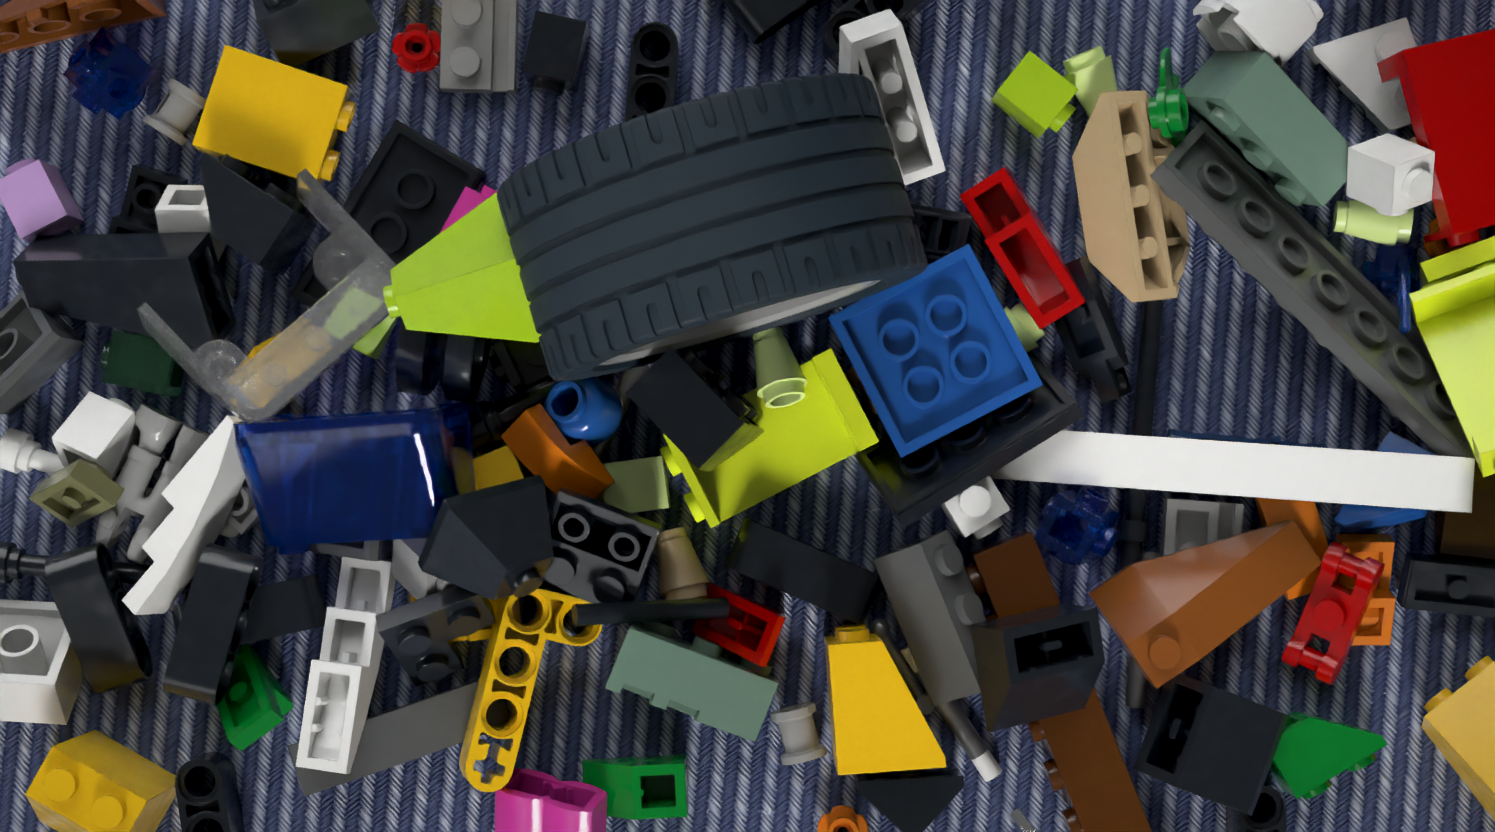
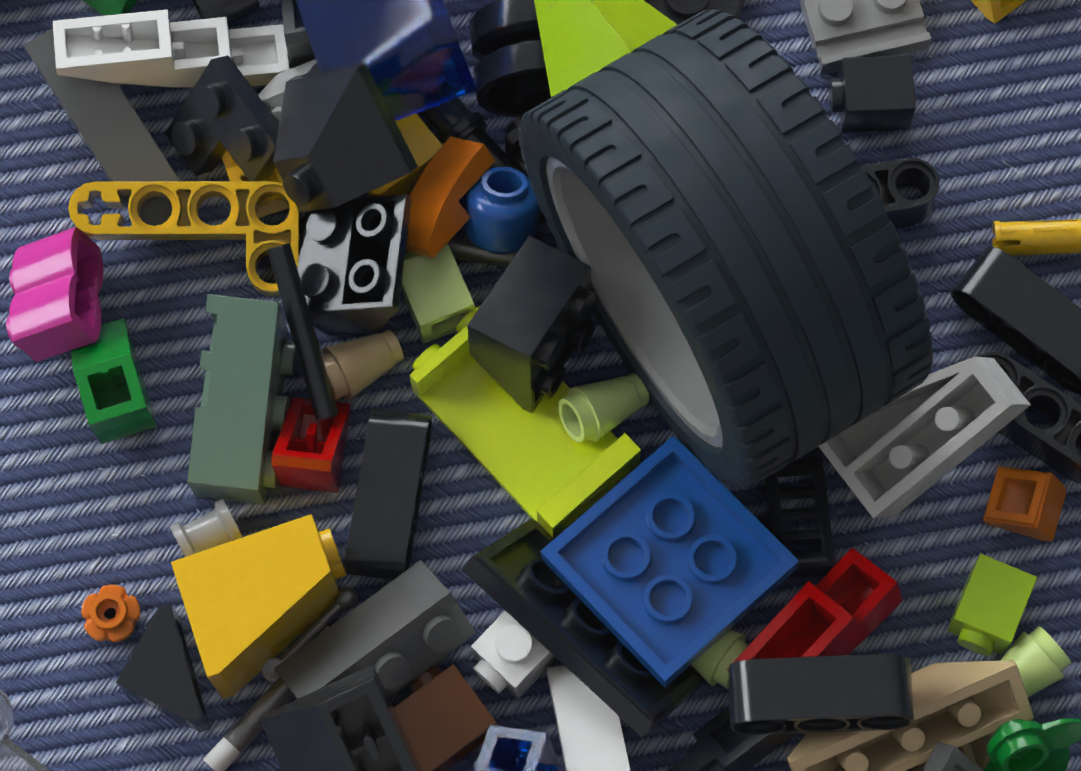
camera: 80 degrees right, 15 degrees down
(950, 40) = (1025, 502): none -> orange slope
(1096, 260) = (820, 694): none -> black beam

